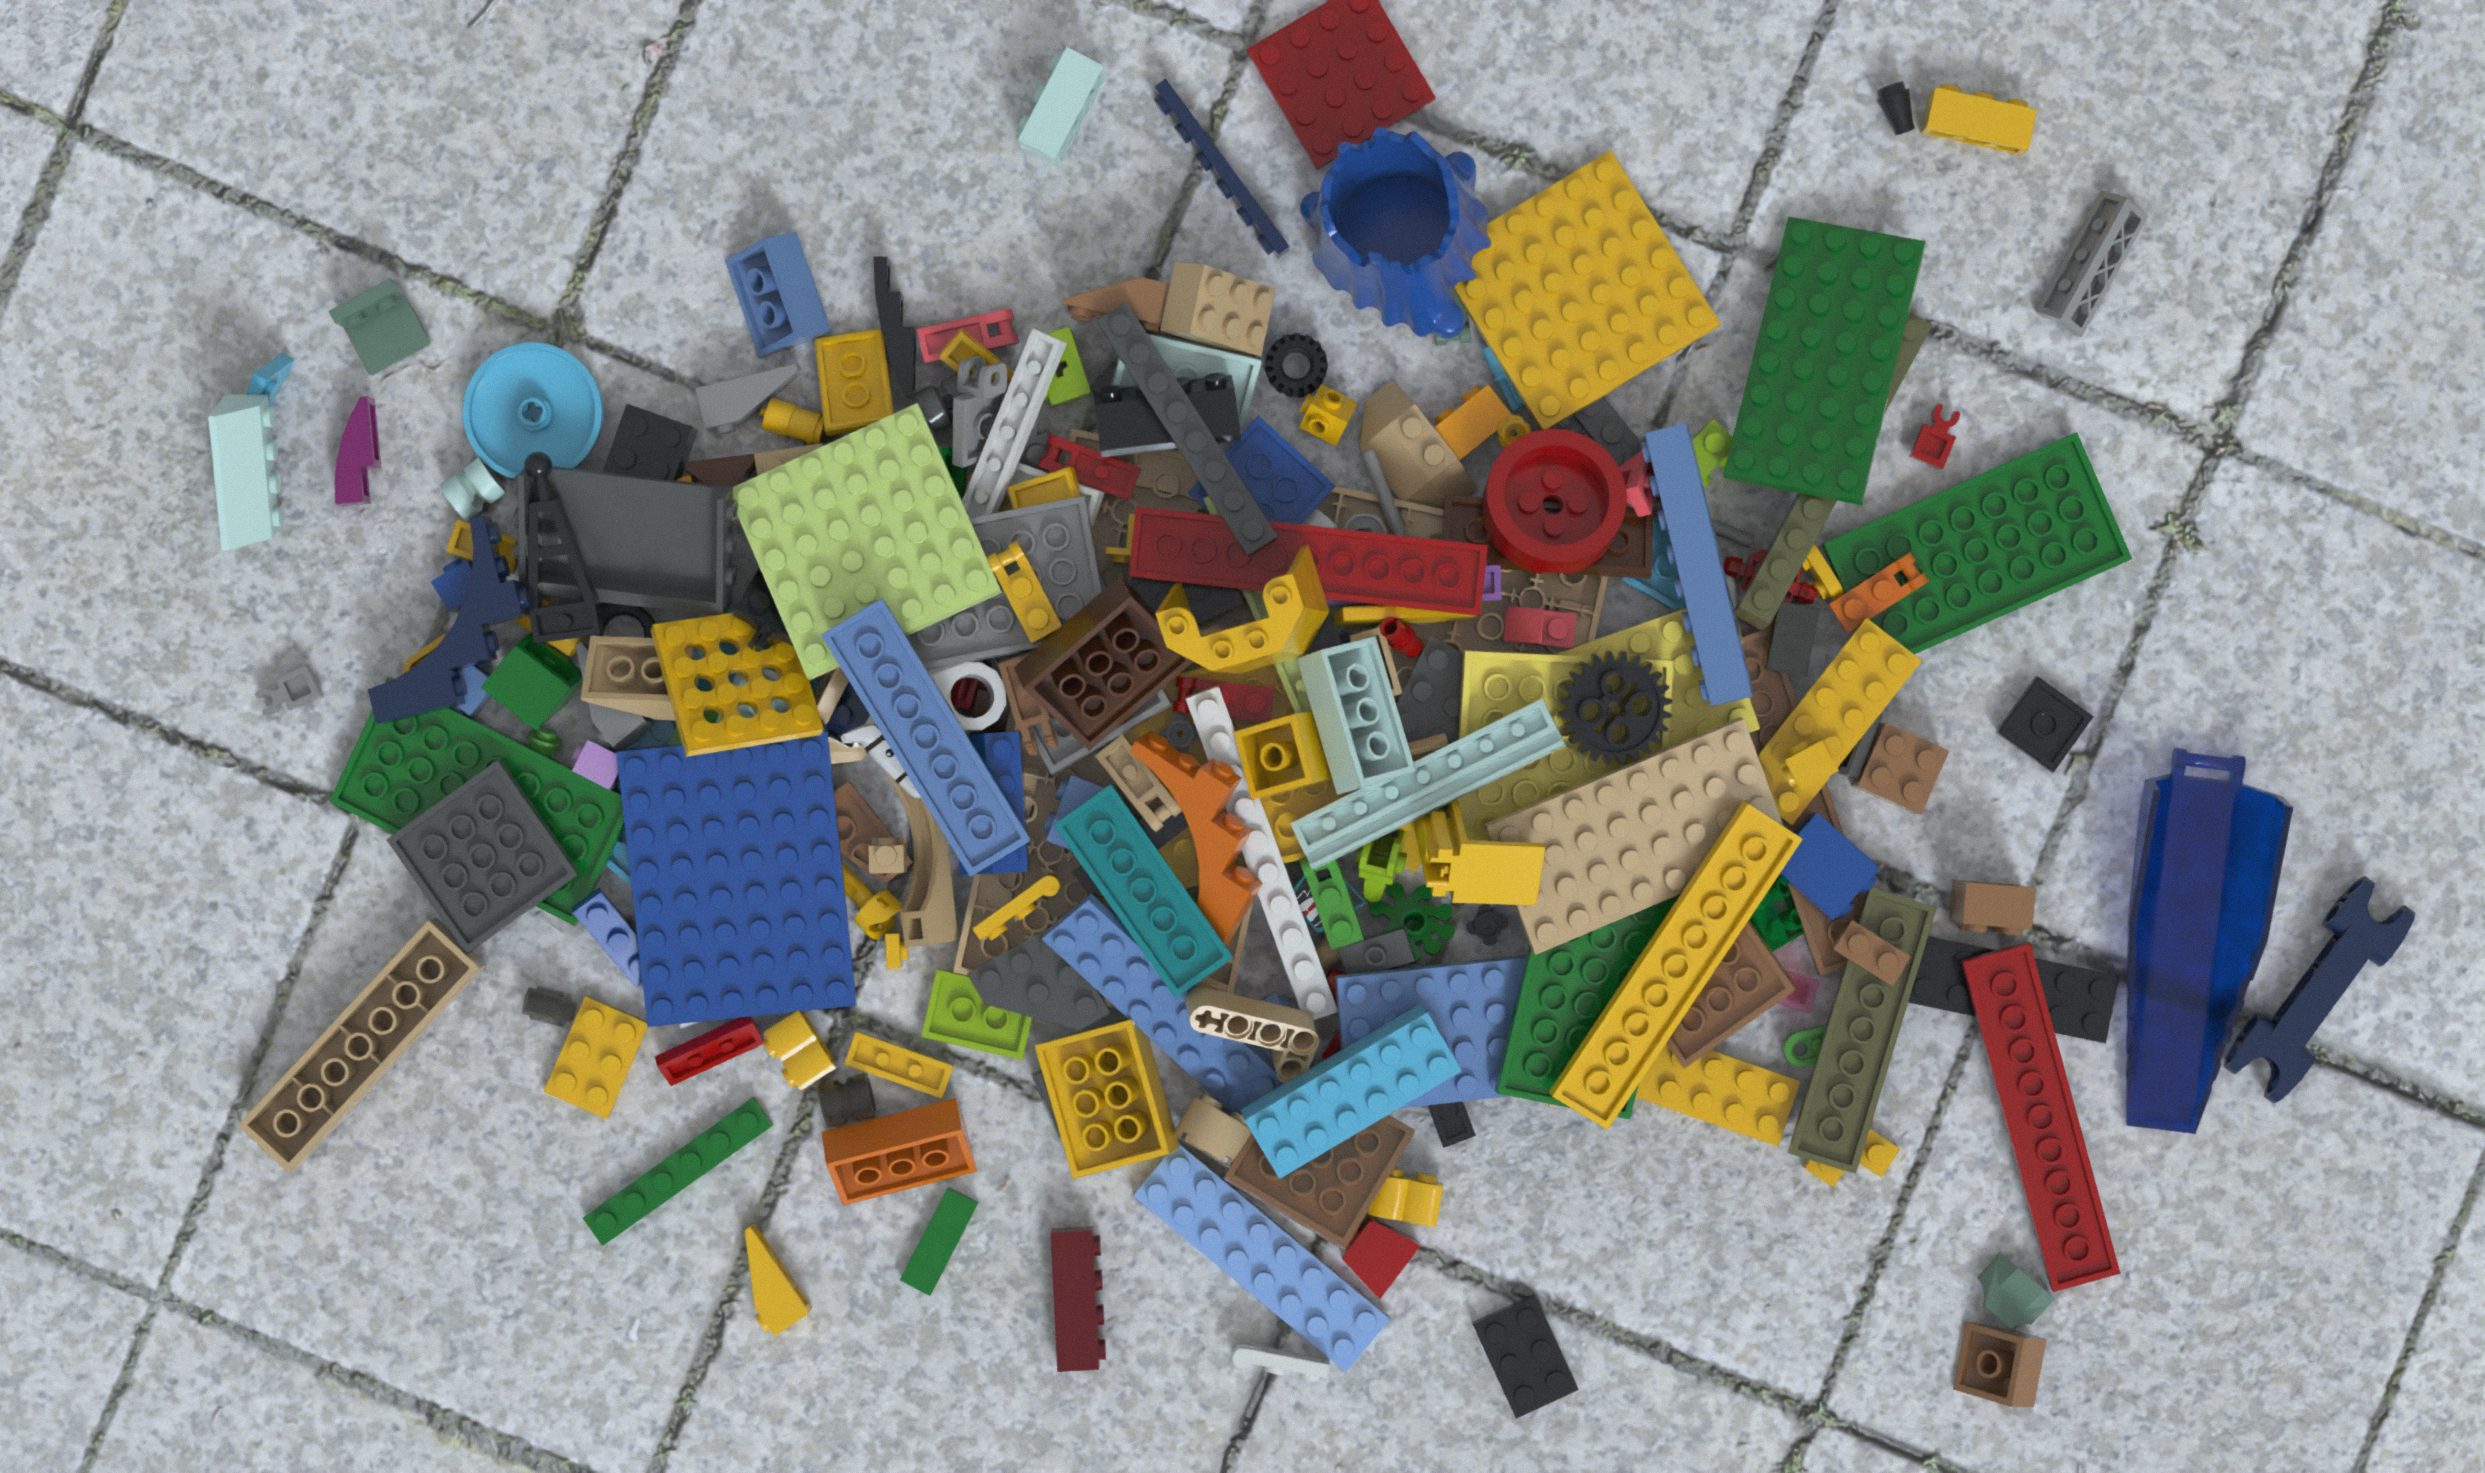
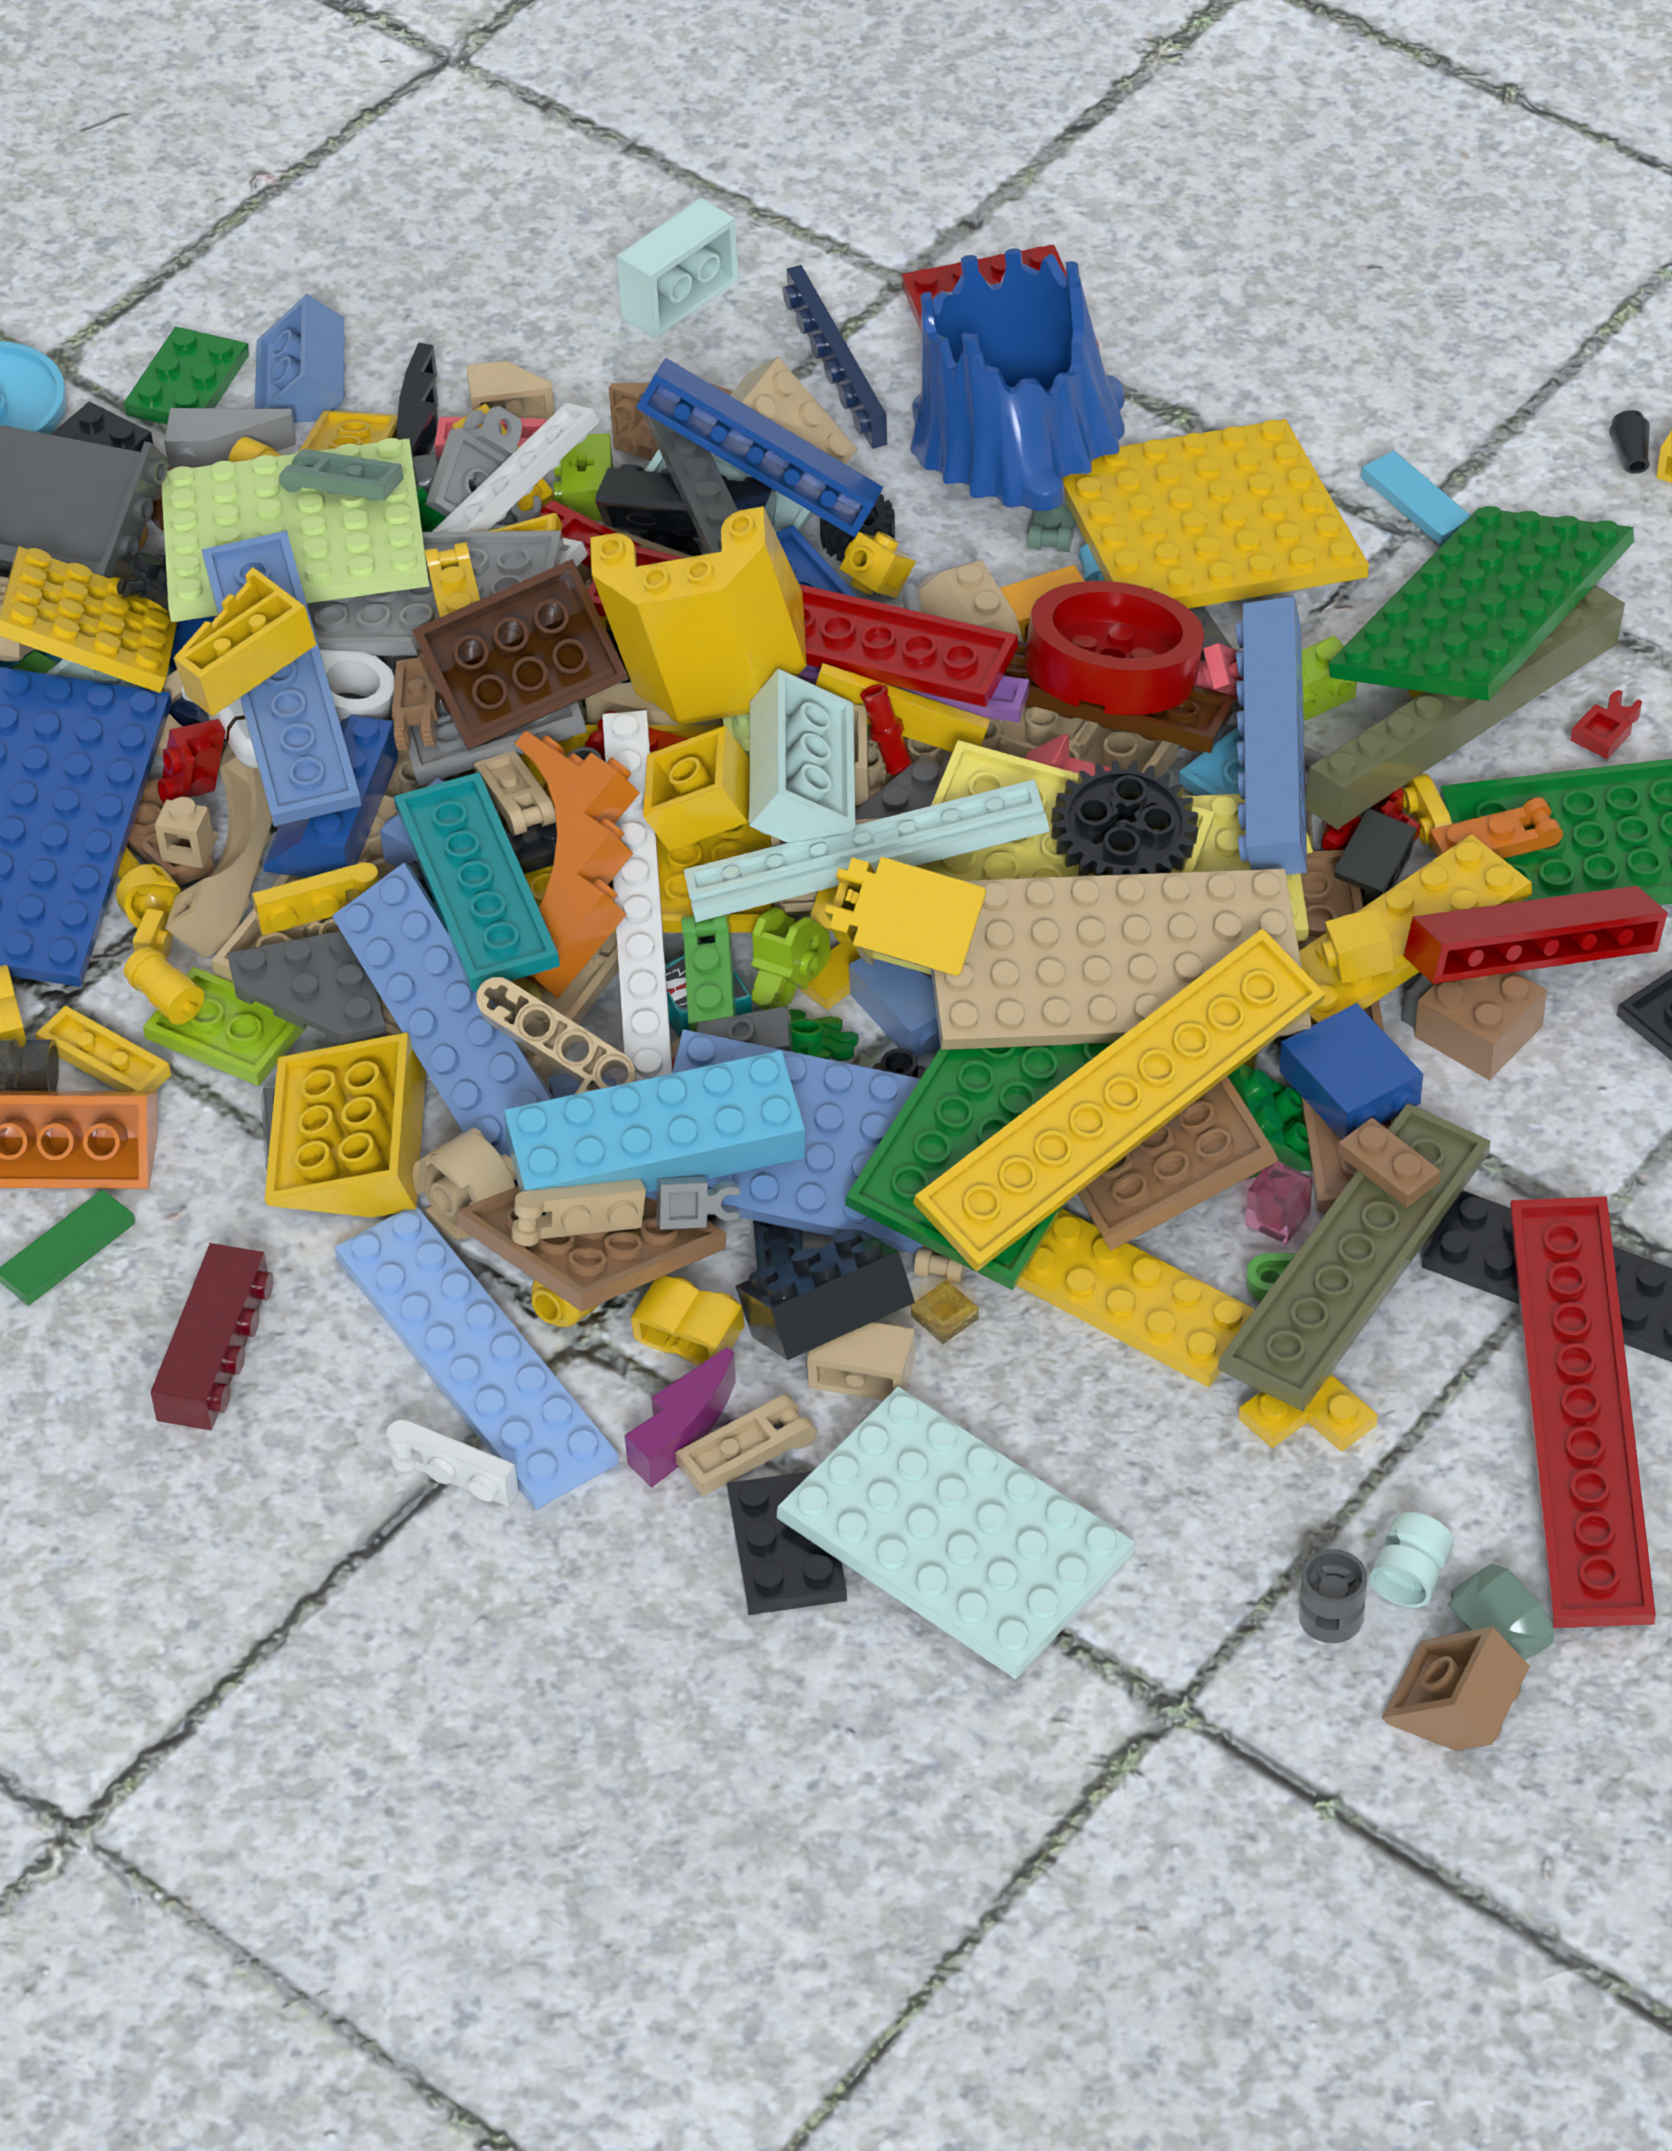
camera: 20 degrees right, 40 degrees down
(684, 324) = (186, 373): none -> green plate
(867, 797) = (191, 760): none -> red bracket
(890, 491) = (341, 475): none -> sand green plate
(899, 741) = (244, 644): none -> yellow wedge
(929, 1009) = (164, 985): none -> yellow piece
(959, 285) = (510, 388): none -> tan slope
(1216, 366) = (759, 447): none -> blue brick
(1314, 1170) = (577, 1210): none -> tan plate
(1379, 1254) = (625, 1370): red torso -> none
(1392, 1124) = (687, 1201): none -> light grey plate
(1427, 1281) = (680, 1417): none -> magenta slope
(1475, 1289) = (745, 1444): none -> tan plate
(1500, 1165) = (824, 1293): none -> black brick
(1541, 1199) = (864, 1361): none -> tan slope
(1581, 1139) = (944, 1312): none -> clear yellow plate
(1640, 1326) = (956, 1531): none -> light aqua plate
(1735, 212) = (1415, 496): none -> medium azure tile
(1906, 1317) = (1332, 1596): none -> dark grey wheel
(1932, 705) = (1534, 934): none -> red brick
(1951, 1272) = (1411, 1560): none -> light aqua wheel
(1998, 905) = (1565, 1153): medium nougat brick -> none

